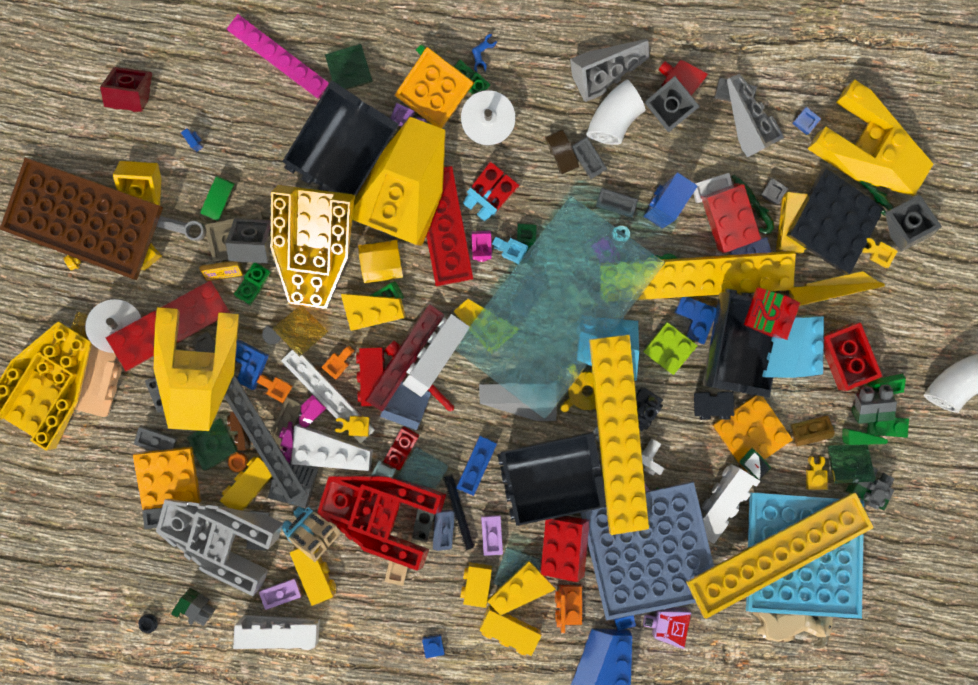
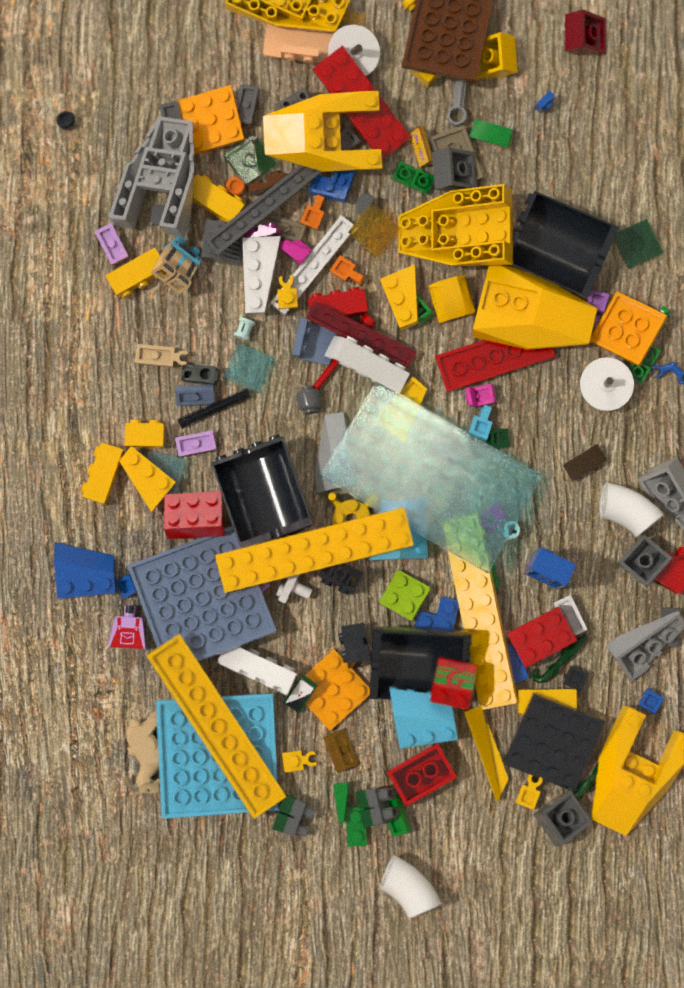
camera: 75 degrees right, 5 degrees down
(194, 606) = (90, 162): dark grey hips -> none
(275, 632) = (73, 245): white wedge -> none
(278, 56) = (638, 174): dark pink plate -> none
(368, 509) = (206, 317): red wedge -> none
(401, 448) = (270, 343): red slope -> none
(433, 646) = (77, 400): blue plate -> none
(463, 417) = (309, 400): none -> dark grey head
(476, 465) = (262, 419): blue plate -> none
(486, 196) = (536, 397): red hips -> none
(569, 602) = (135, 528): orange bracket -> none
(588, 158) = (582, 489): dark grey plate -> none
(616, 202) = (542, 523): dark grey plate -> none
(851, 463) = (314, 790): clear green tile -> none
(878, 494) = (283, 817): dark grey piece -> none

